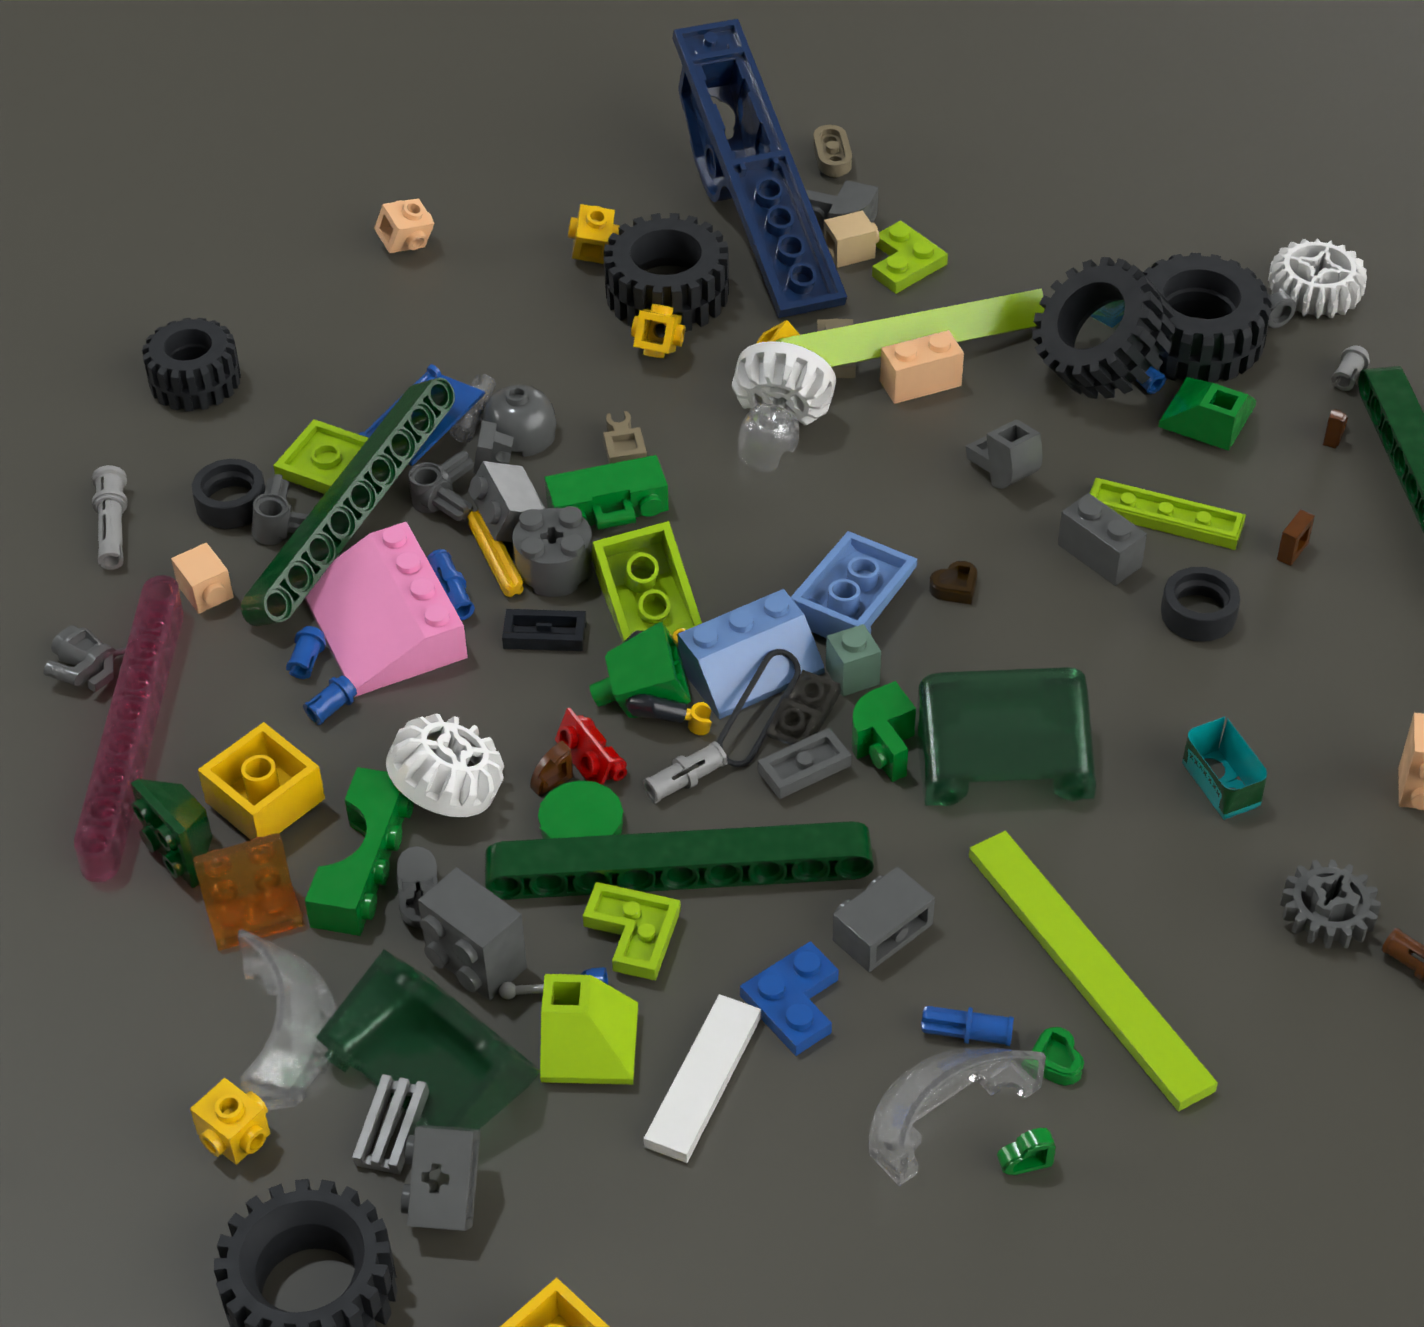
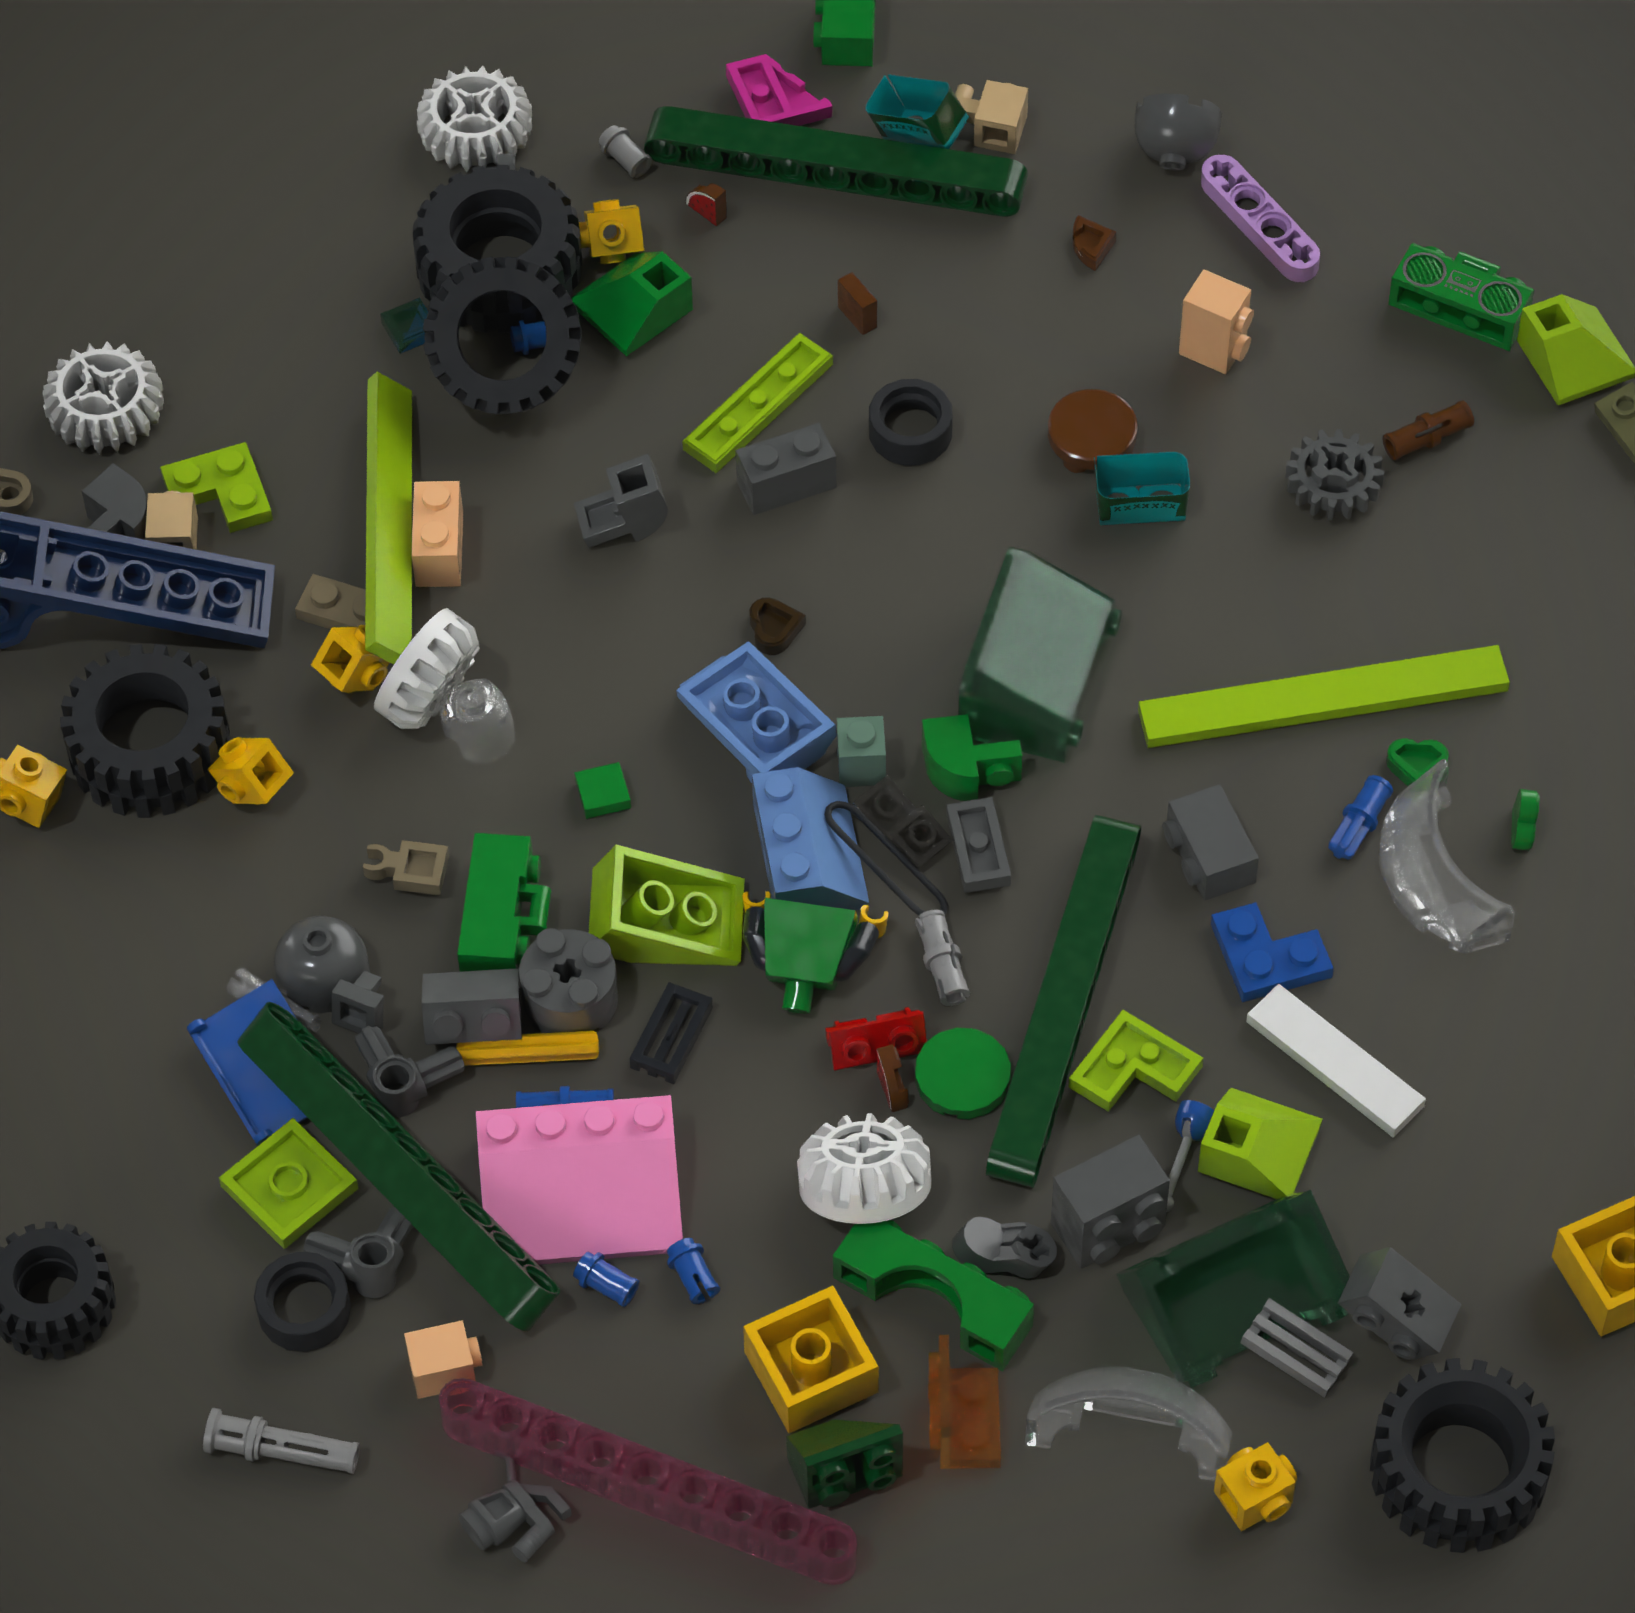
camera: 70 degrees left, 10 degrees up
(746, 528) = (602, 790): none -> green tile
(940, 175) = (93, 394): none -> white gear
(1262, 375) = (628, 232): none -> yellow brick
(1272, 722) = (1091, 426): none -> reddish brown tile

